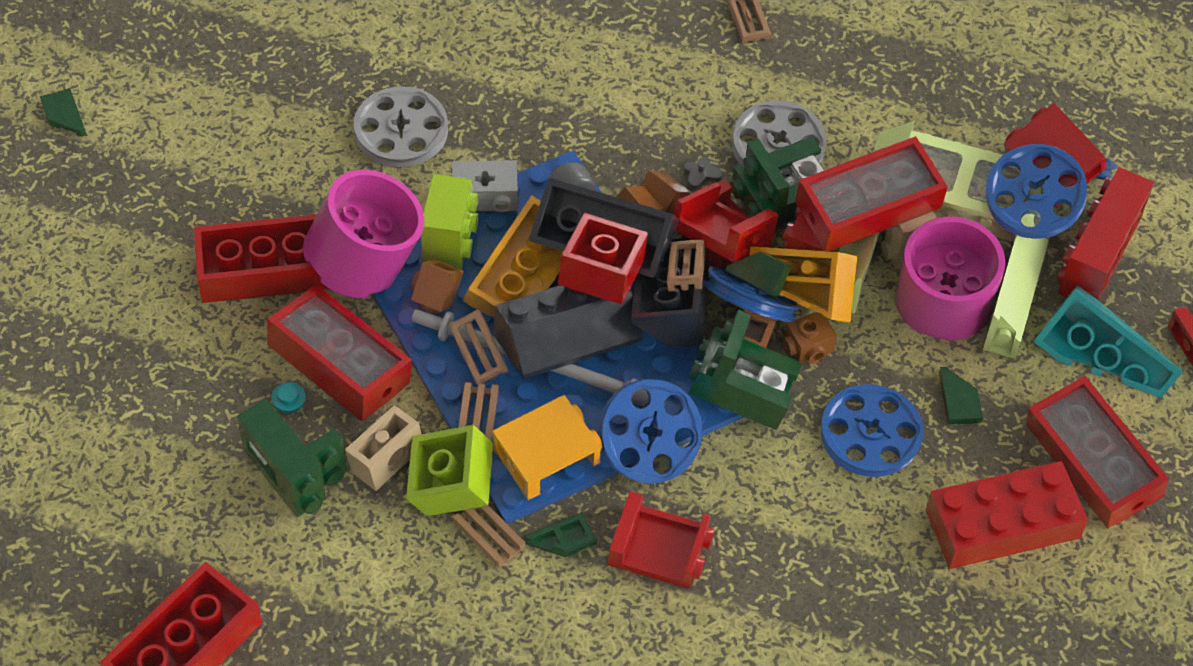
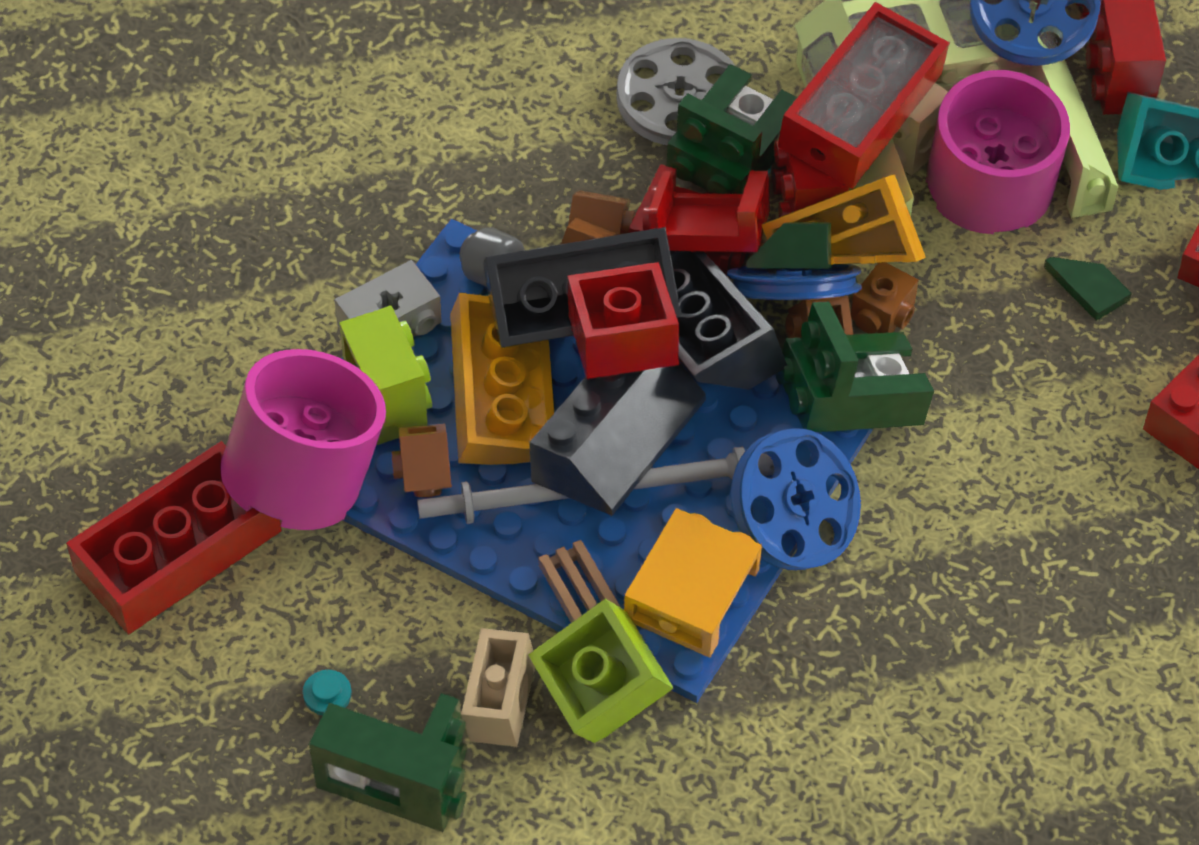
camera: 30 degrees left, 0 degrees up
(339, 352) = (354, 603): brick -> none
(388, 129) = (212, 308): light grey wedge -> none
(481, 543) = (686, 738): medium nougat tile -> none
(491, 372) = (495, 484): medium nougat tile -> none
(563, 536) = (776, 678): dark green tile -> none
(659, 543) = (893, 624): red panel -> none
(686, 279) = (721, 300): medium nougat tile -> none
(702, 172) = (616, 171): dark grey piece -> none
(871, 445) = (1011, 385): blue wedge -> none

